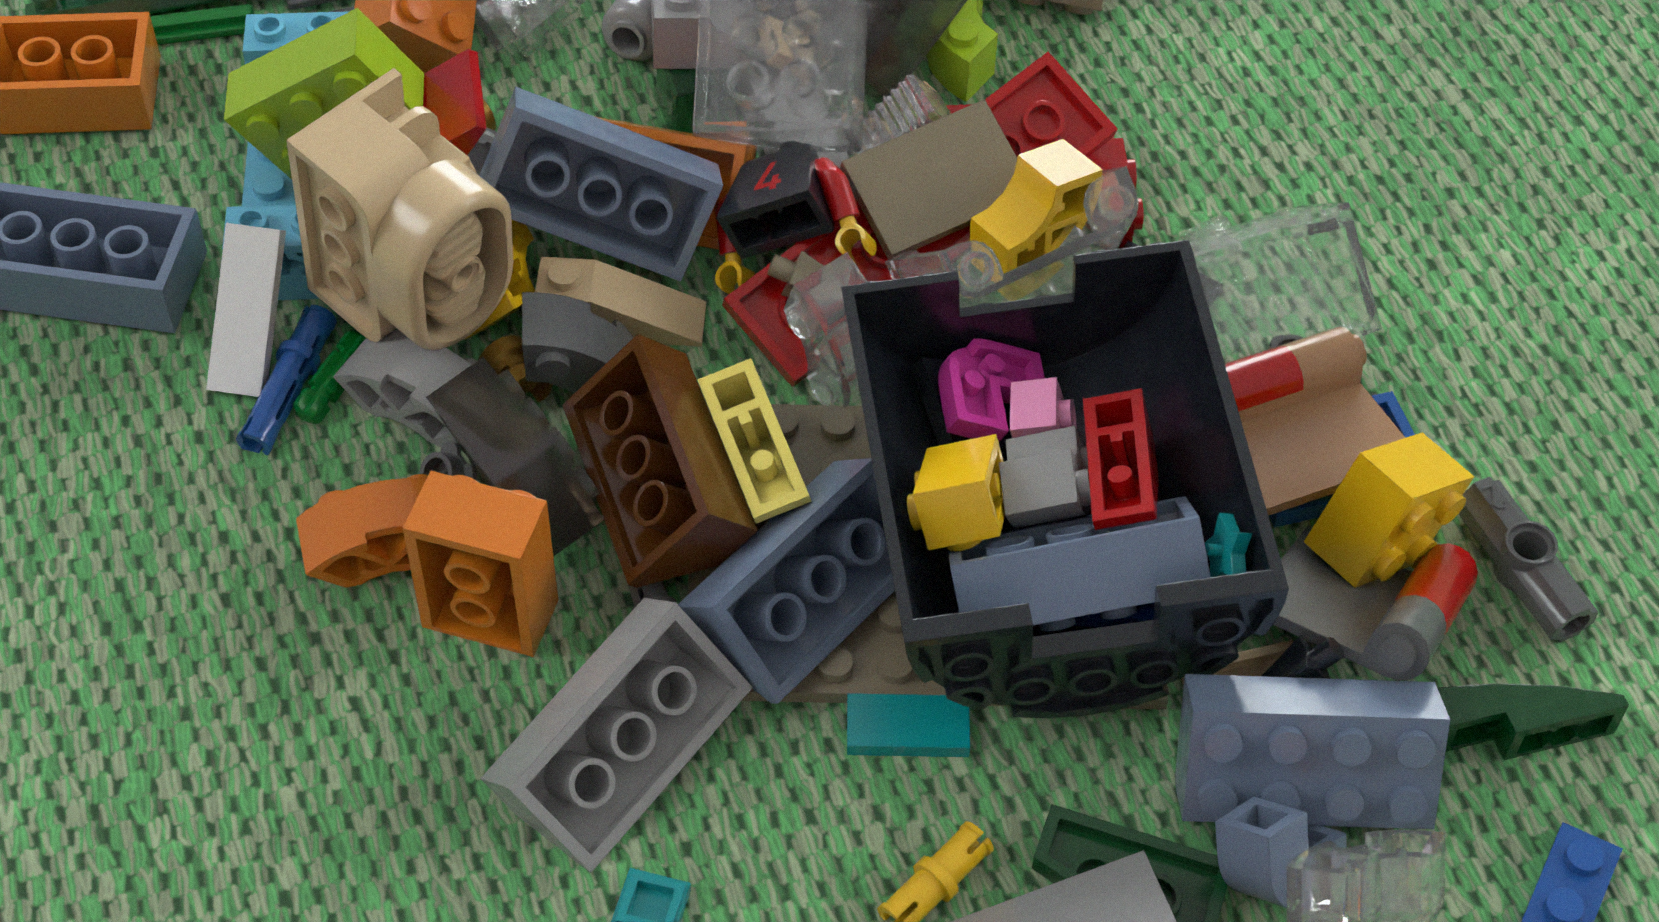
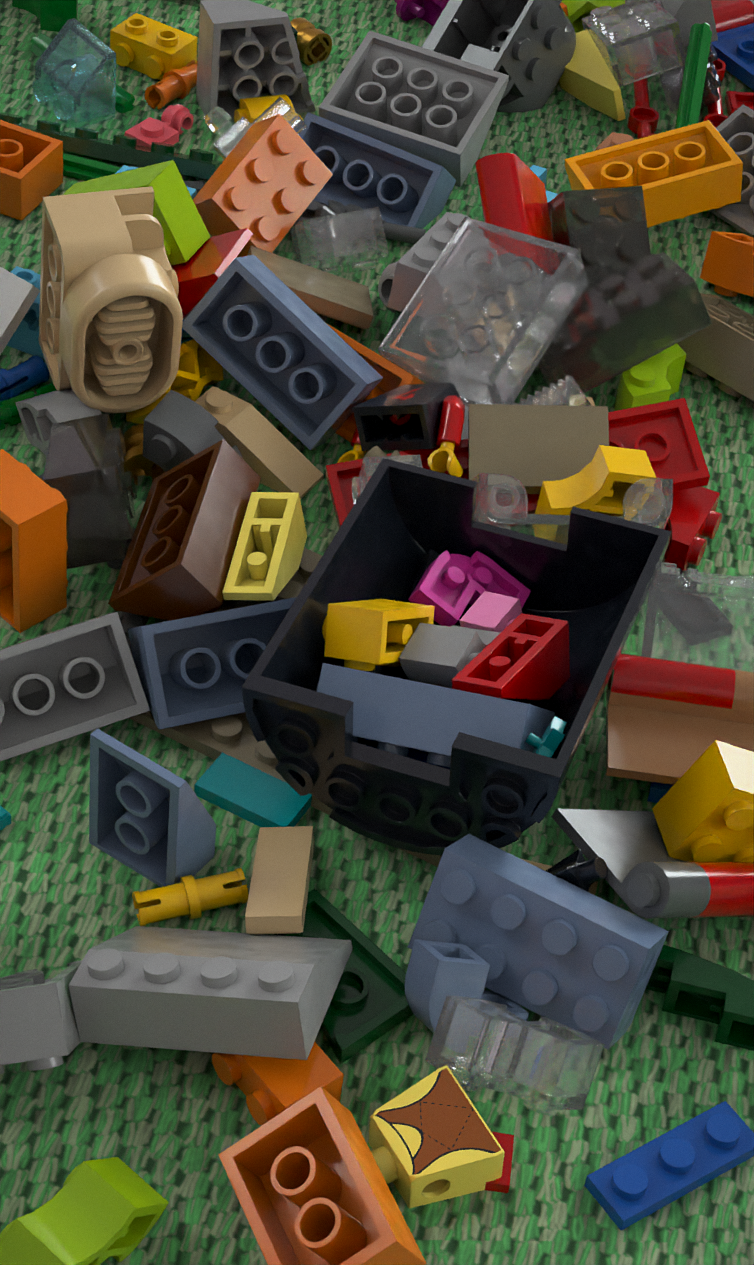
camera: 25 degrees right, 10 degrees down
(563, 73) = (321, 290): none -> dark tan tile
(850, 823) = (146, 814): none -> sand blue slope
(1016, 814) = (280, 880): none -> tan tile

